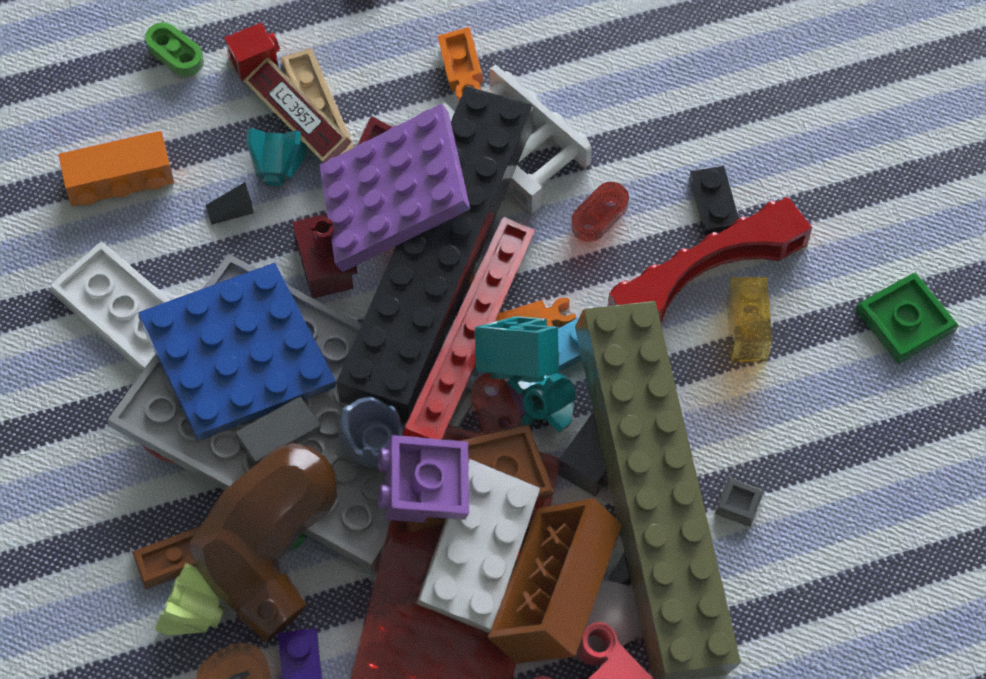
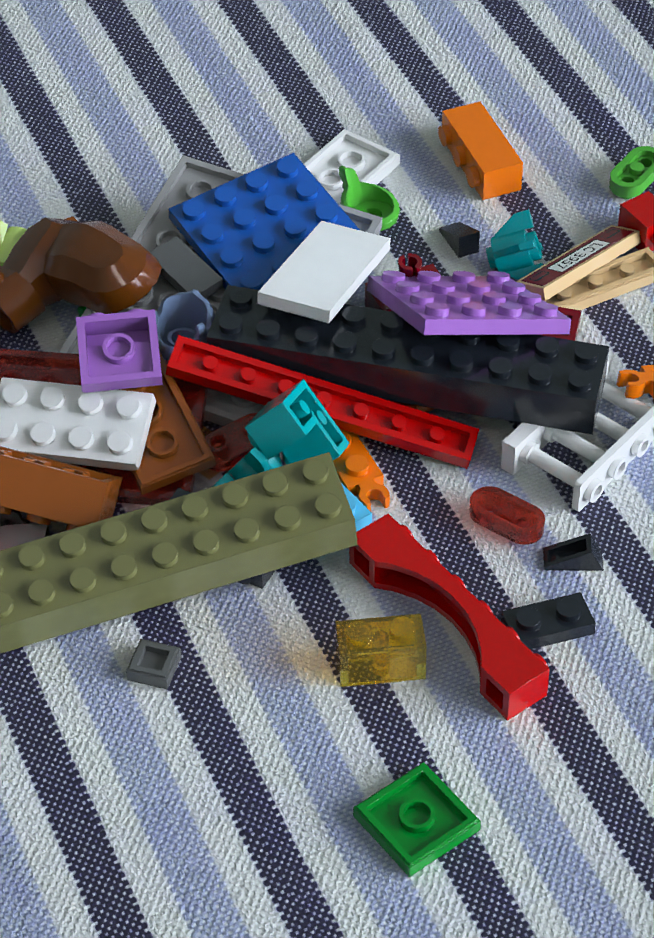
camera: 85 degrees right, 15 degrees down
(190, 268) = (368, 198): none -> bright green hat
(339, 293) = (324, 271): none -> white tile
(643, 174) = (574, 555): none -> black piece

